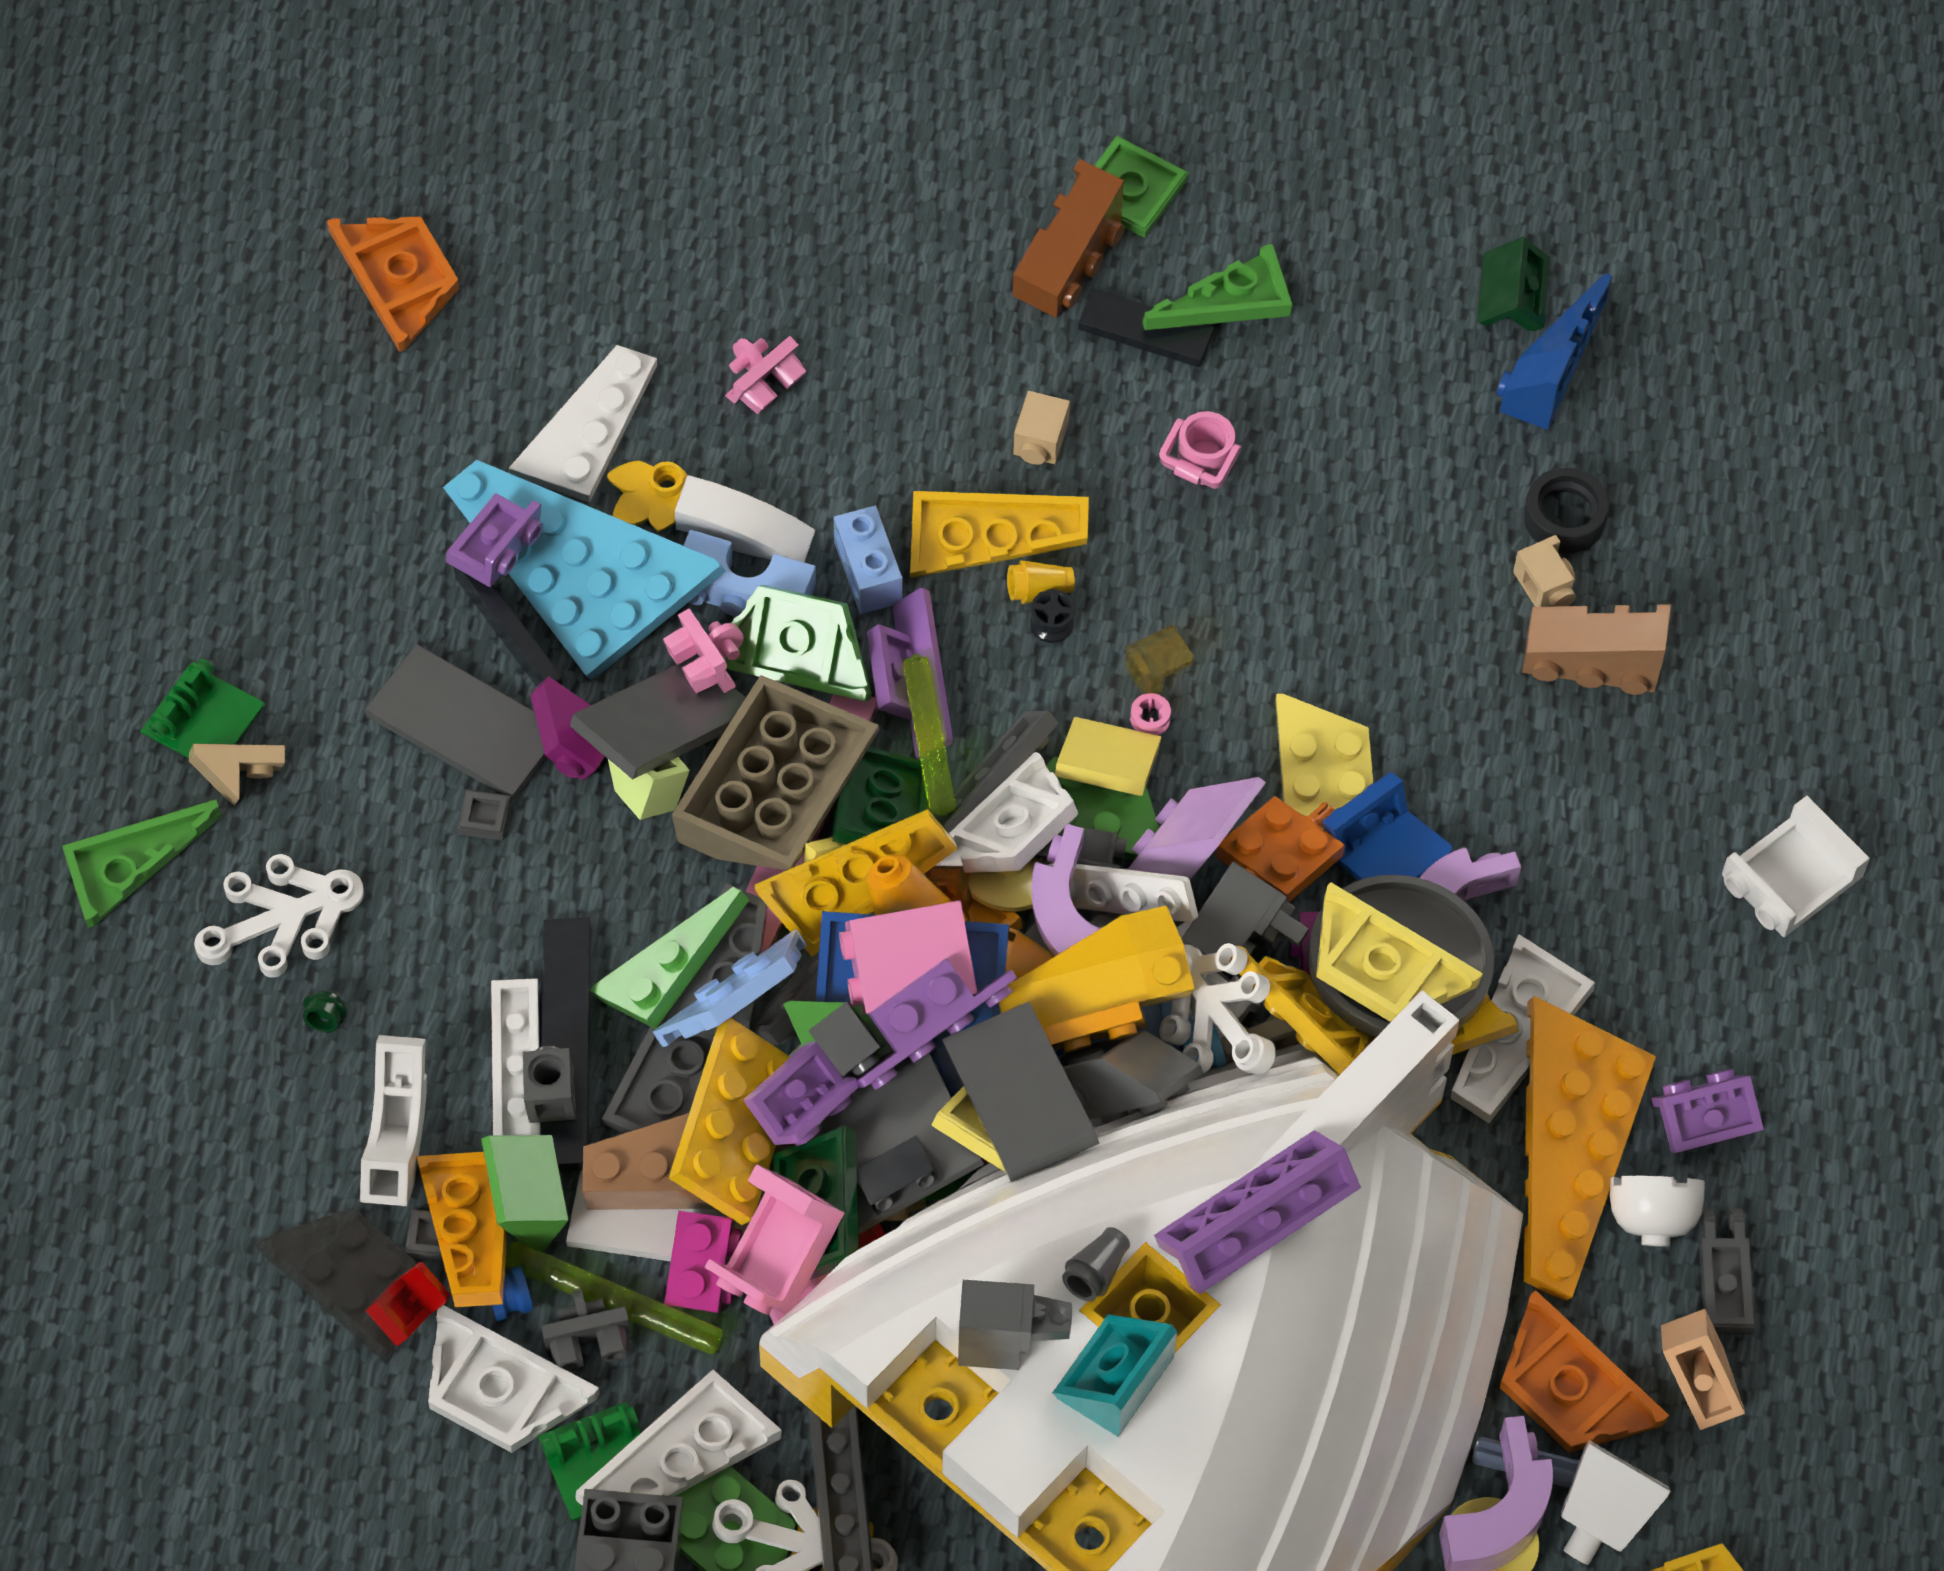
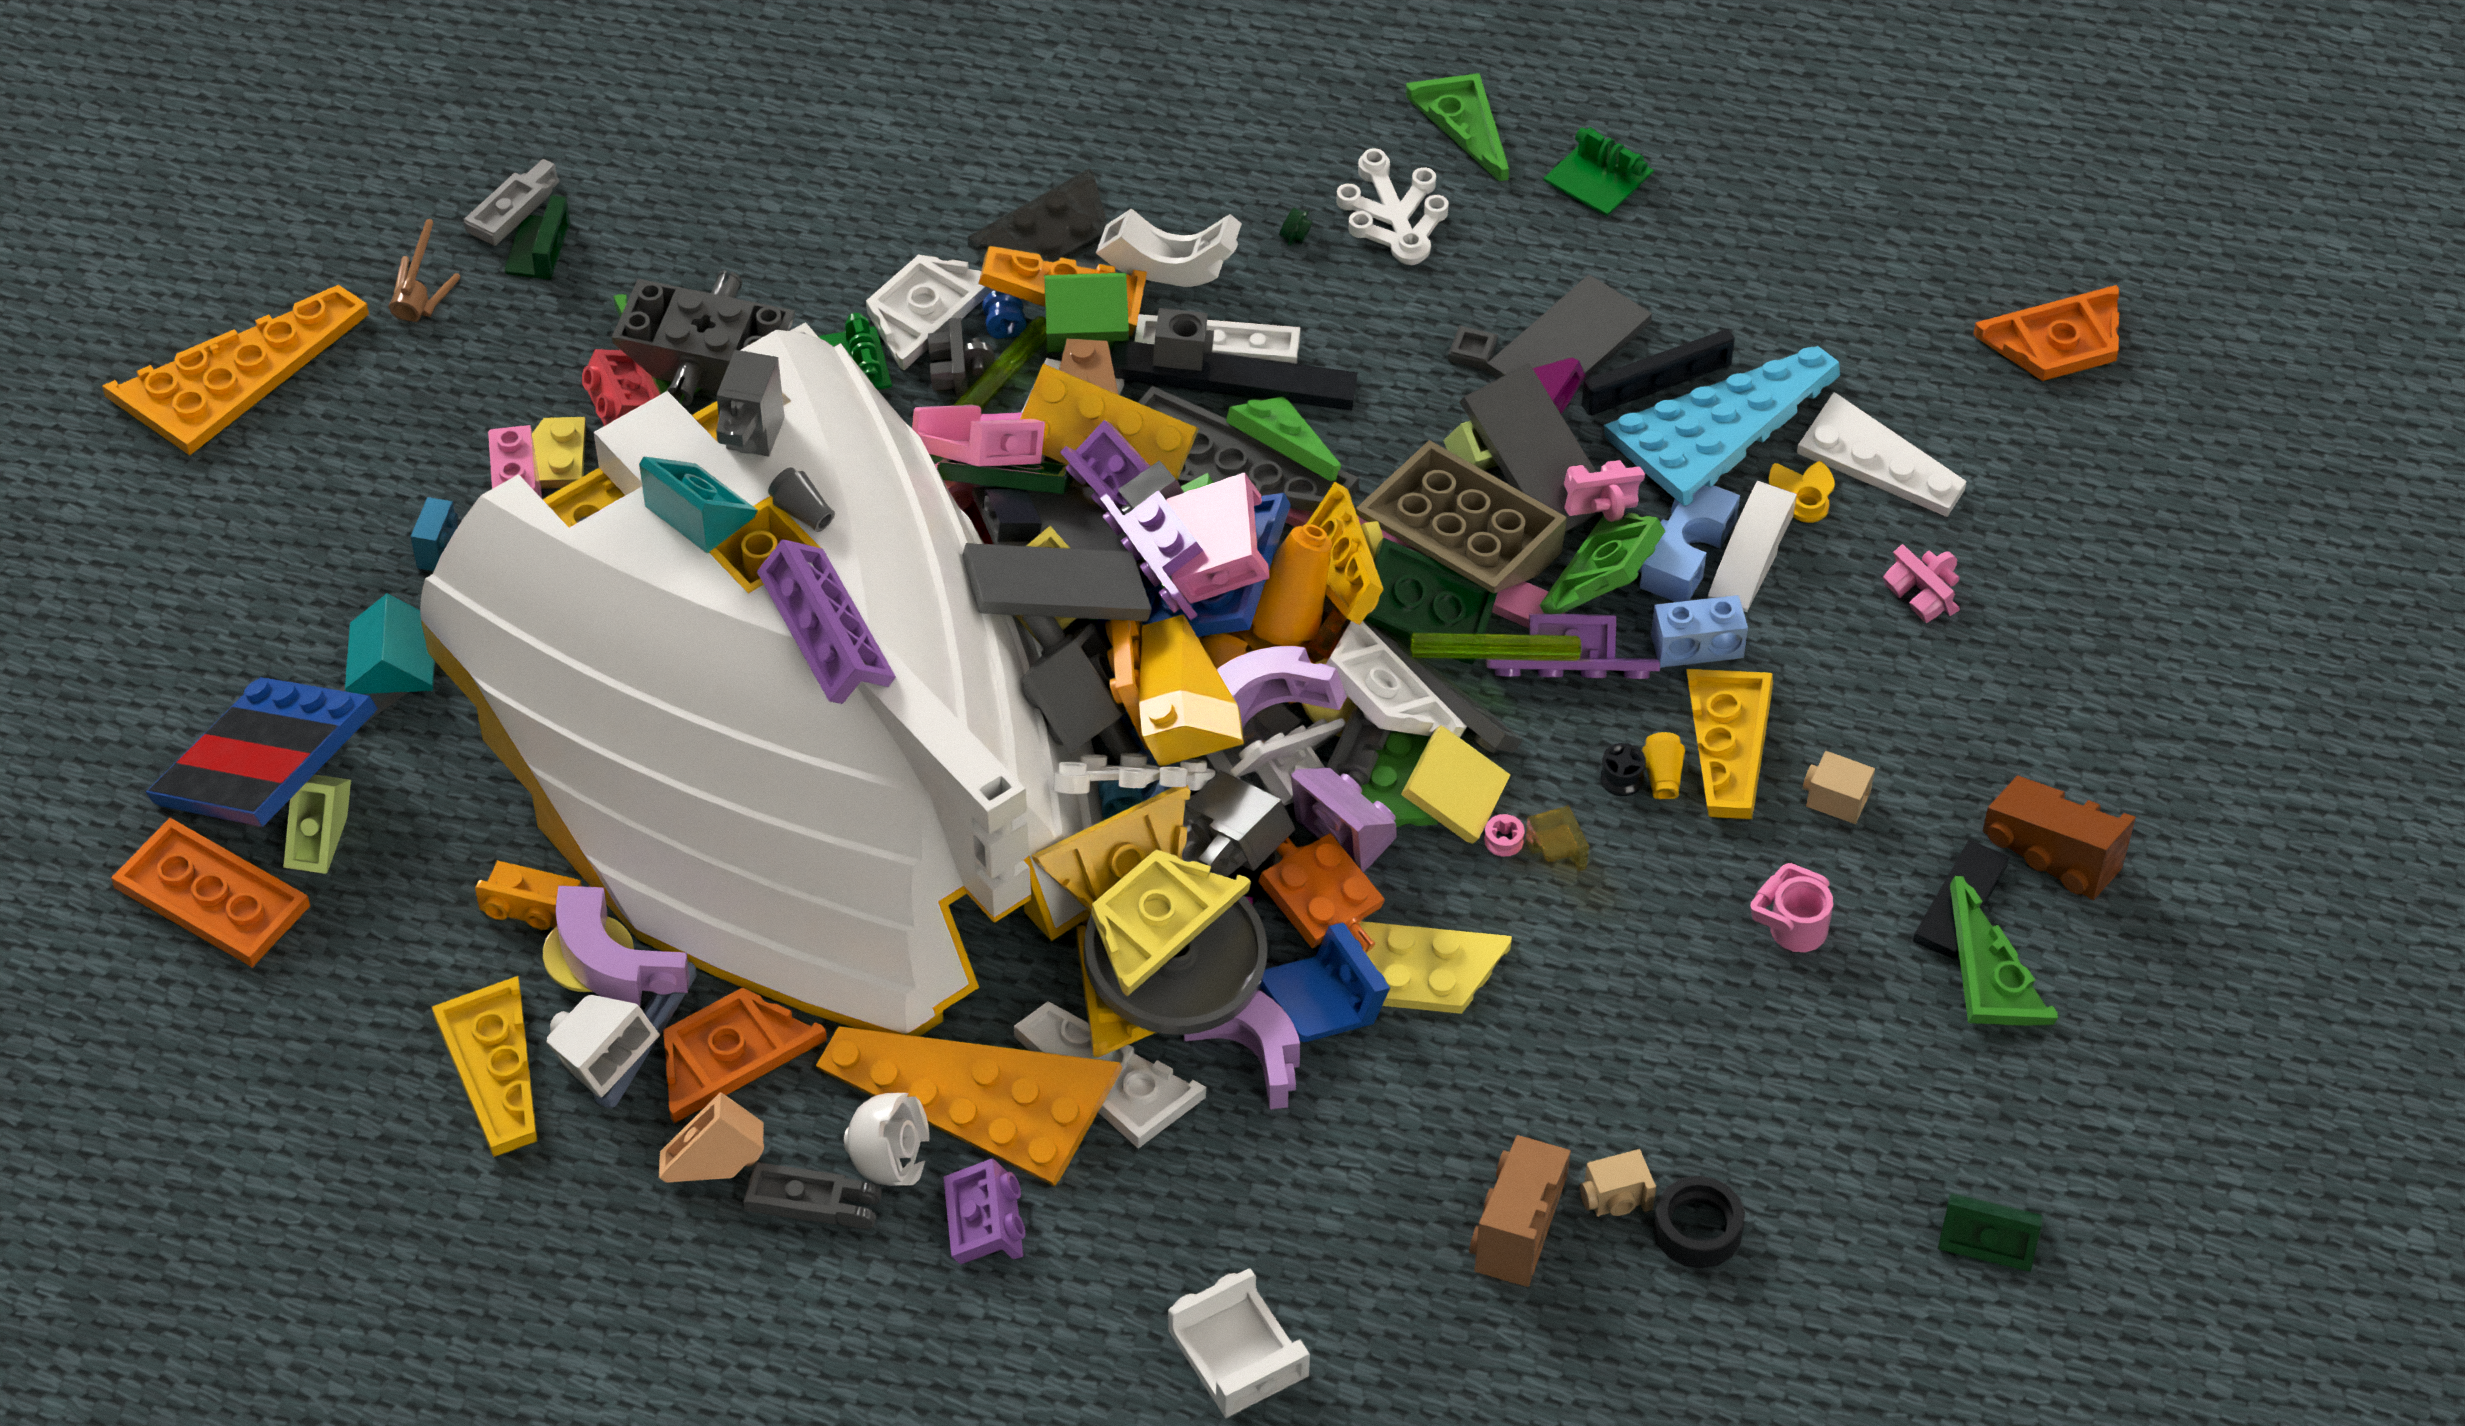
camera: 100 degrees right, 10 degrees down
(222, 764) = (1538, 177): tan slope -> none
(408, 1303) = (1000, 232): red bracket -> none
(495, 539) = (1736, 347): medium lavender bracket -> none
(720, 1001) = (1236, 452): light blue wing -> none
(1148, 183) = (2141, 912): bright green tile -> none
(1549, 363) = (1876, 1233): blue wedge -> none

